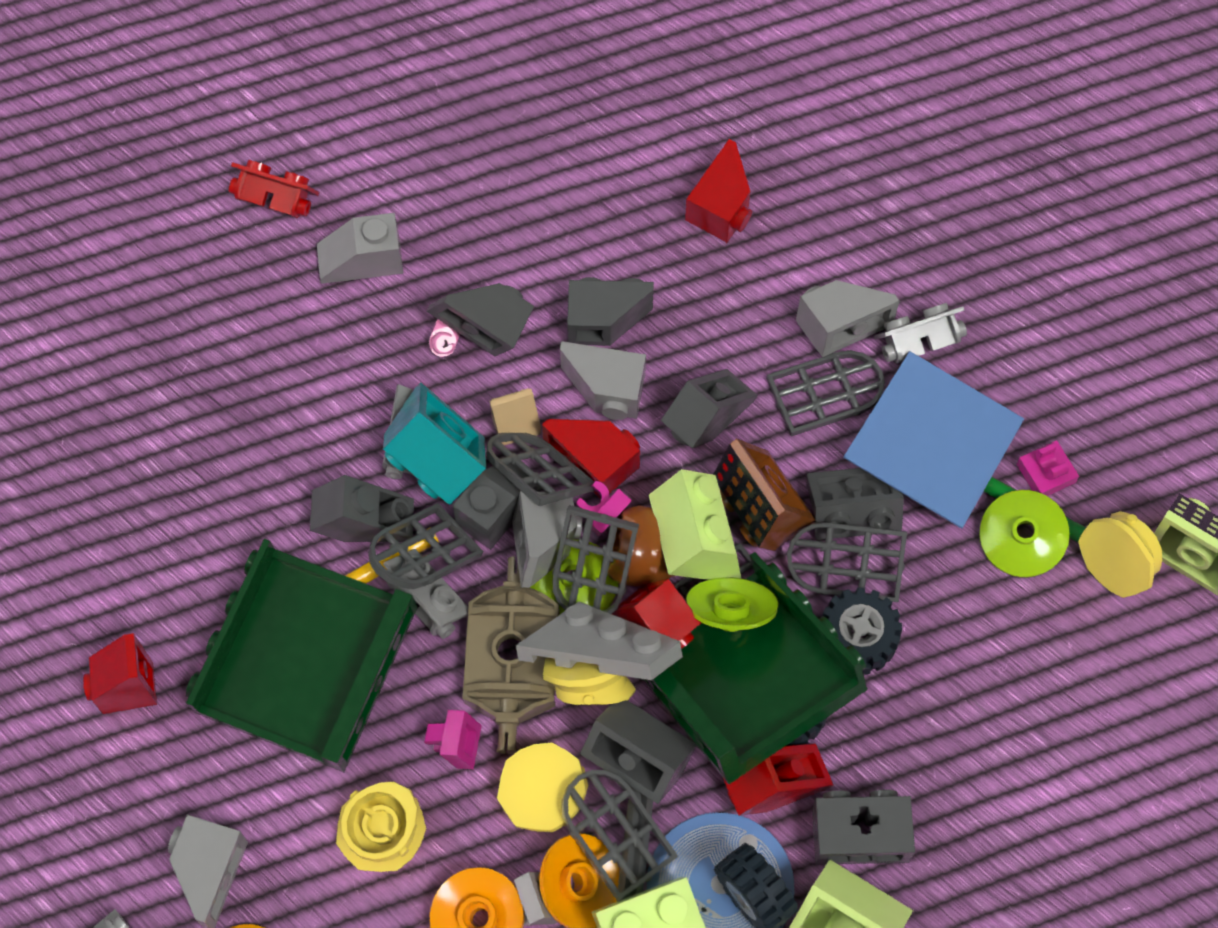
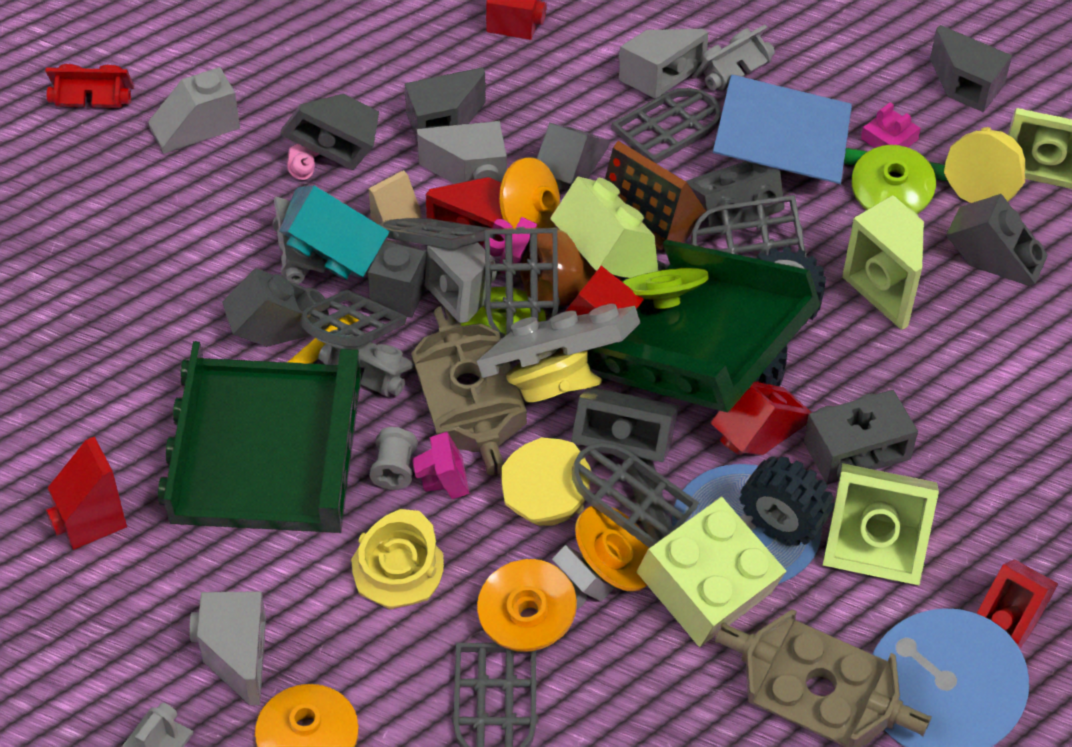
camera: 20 degrees left, 15 degrees down
(413, 713) = (393, 458): none -> light grey bush
(642, 458) = (529, 192): none -> light orange dish
(968, 637) = (886, 258): none -> yellowish green slope
(1097, 643) = (997, 240): none -> dark grey slope
(1161, 416) = (968, 68): none -> dark grey slope

